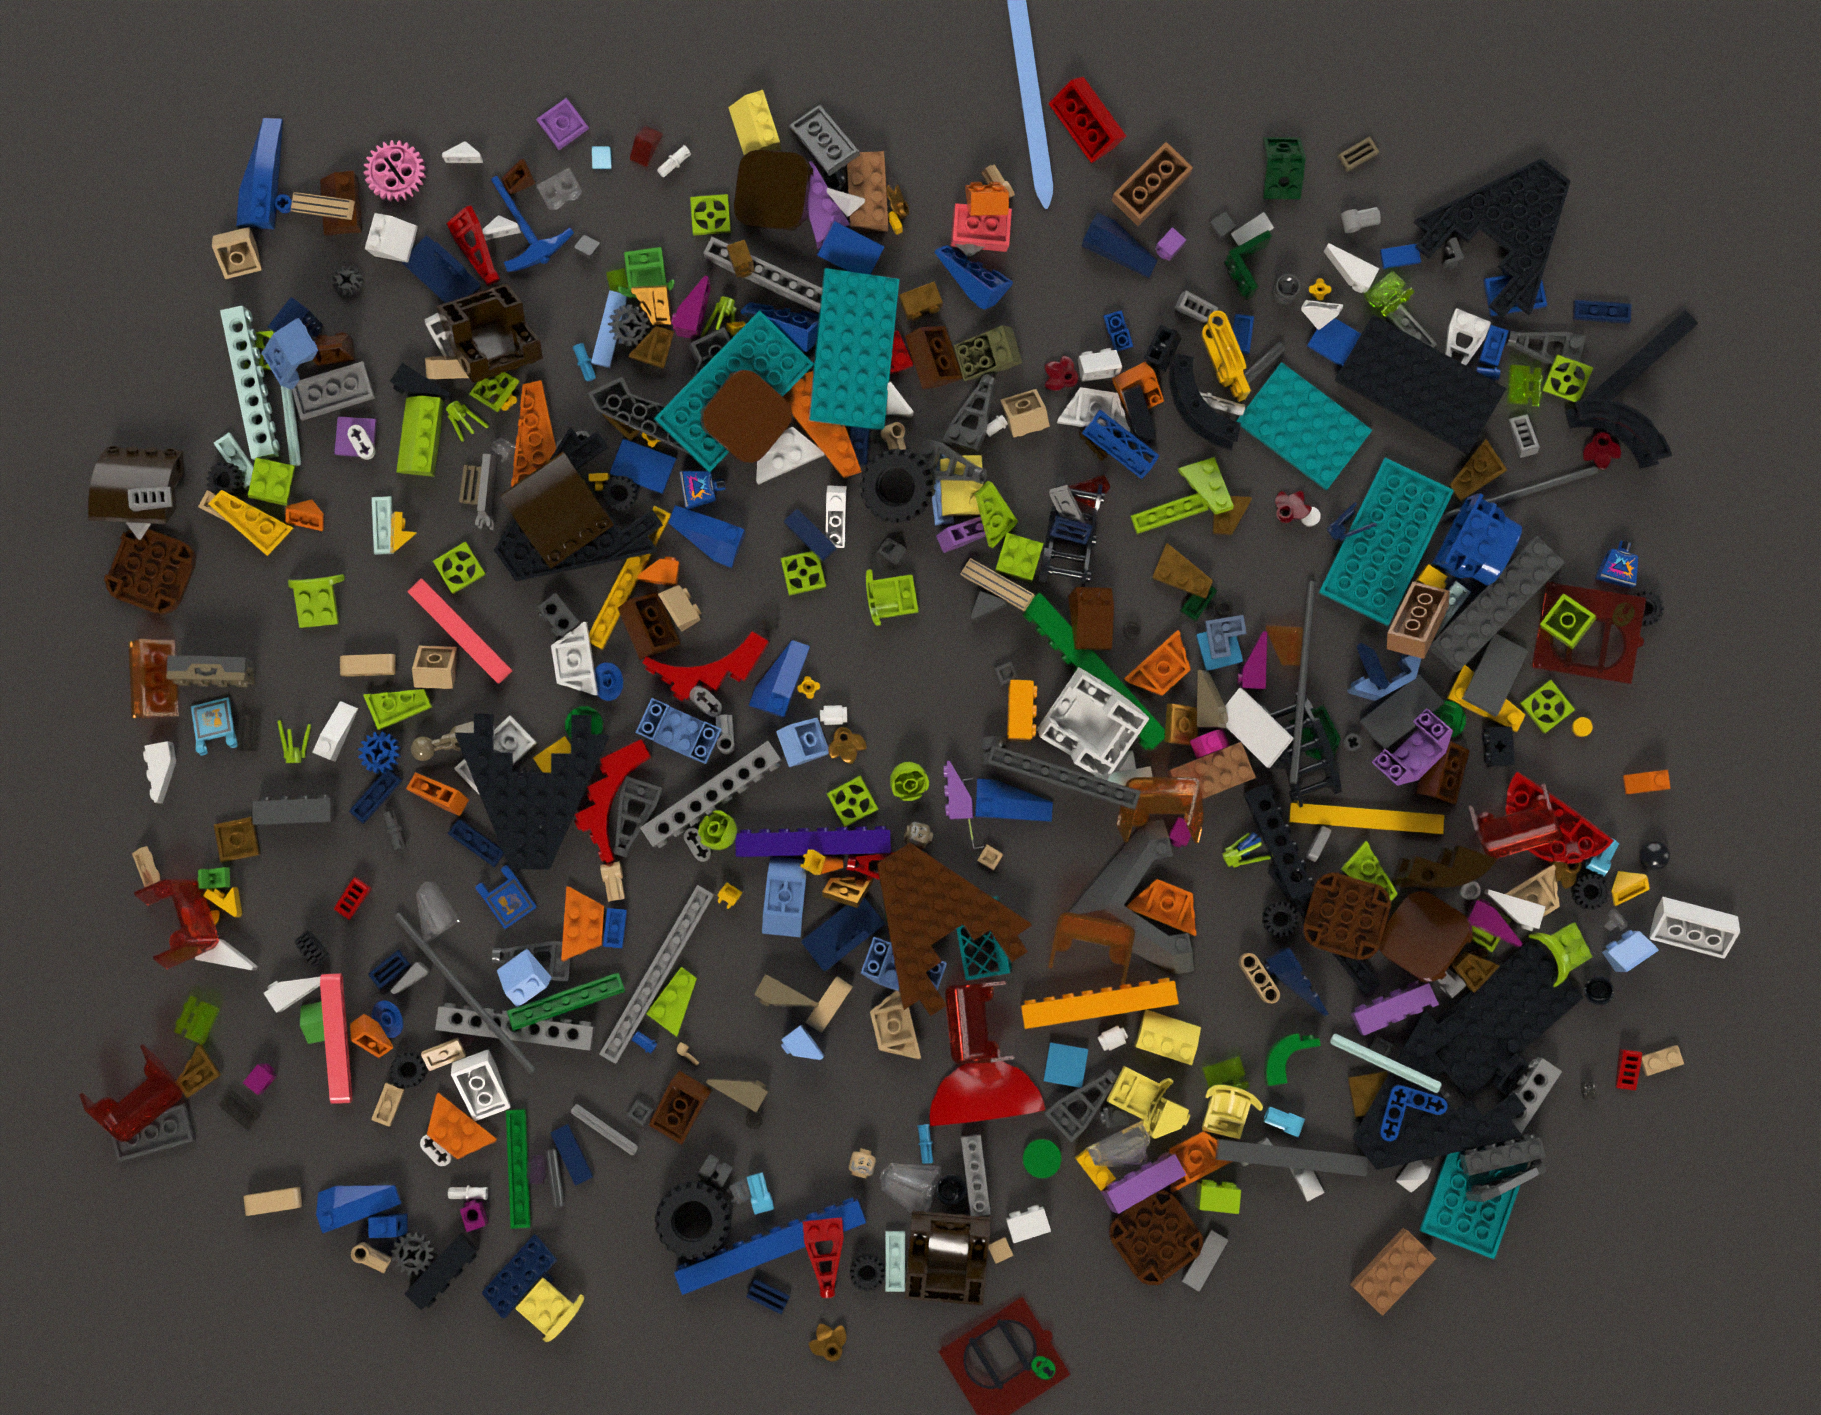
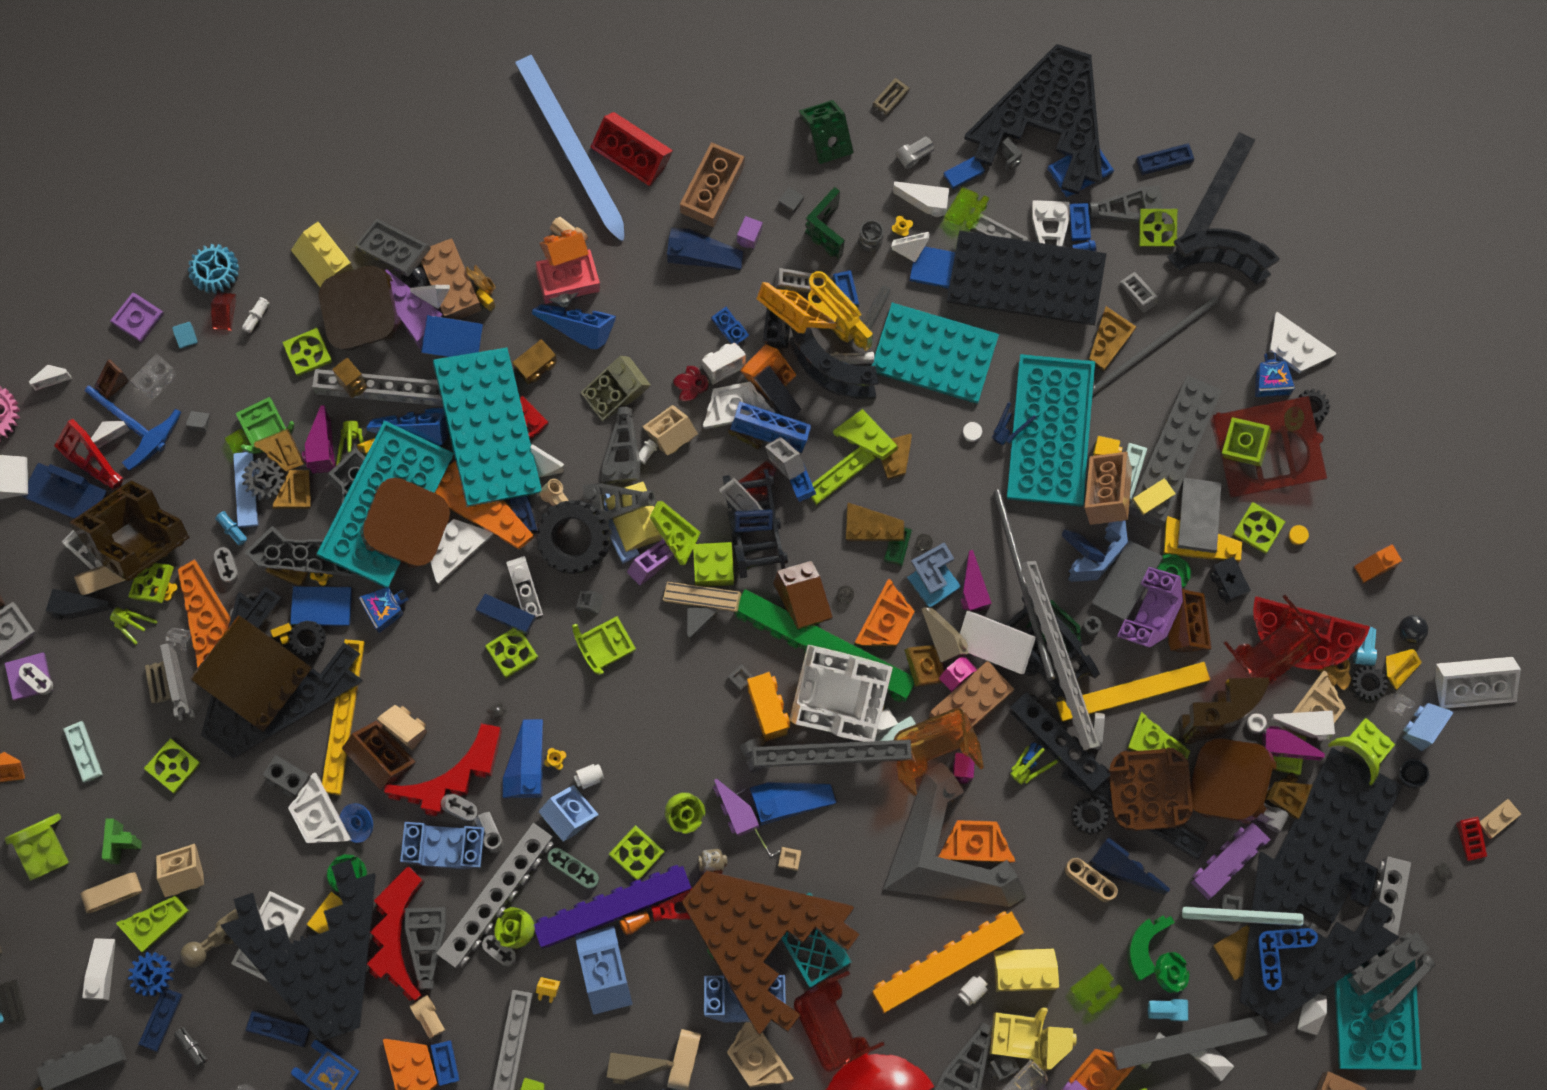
camera: 20 degrees left, 10 degrees down
(292, 753) = (62, 1007): lime plant -> none
(386, 618) = (116, 840): none -> bright green bracket
(398, 537) = (101, 756): yellow slope -> none
(420, 435) = (93, 652): lime slope -> none
(438, 793) = (223, 993): orange slope -> none
(459, 631) = (193, 826): coral beam -> none
(563, 396) = (222, 567): none -> light grey beam
(643, 114) = (209, 259): none -> medium azure gear
(662, 572) = (373, 699): orange slope -> none
(712, 536) = (411, 648): blue wedge -> none
(794, 809) = (564, 856): none -> sand green beam
(813, 862) = (619, 924): yellow tile -> none
(842, 933) = (672, 984): dark blue bracket -> none
(846, 748) = (613, 803): pearl gold plate -> none
(847, 890) = (662, 941): pearl gold wing -> none
(933, 356) = (565, 408): reddish brown slope -> none
(1065, 1065) = (937, 1034): dark azure tile -> none
(1095, 930) = (915, 891): clear orange windscreen -> none
(1123, 480) = (785, 458): none -> light grey brick
(1129, 508) = (803, 486): none -> blue plate
(1184, 338) = (793, 309): none -> light orange fence
(1228, 1110) = (1110, 1019): light yellow piece -> none
(1252, 229) = (823, 187): white slope -> none
(1287, 643) = (995, 555): clear orange wing -> none
(1293, 505) = (951, 427): dark red plate -> none
(1300, 1089) = (1172, 972): none -> green tile
(1309, 767) = (1059, 655): none -> light grey plate
(1458, 643) = (1153, 496): none -> light yellow tile
(1478, 542) = (1135, 399): blue brick -> none
(1519, 385) = (1116, 247): clear neon green plate -> none
(1601, 453) = (1214, 284): dark red plate -> none
(1655, 543) = (1296, 345): none -> white wing

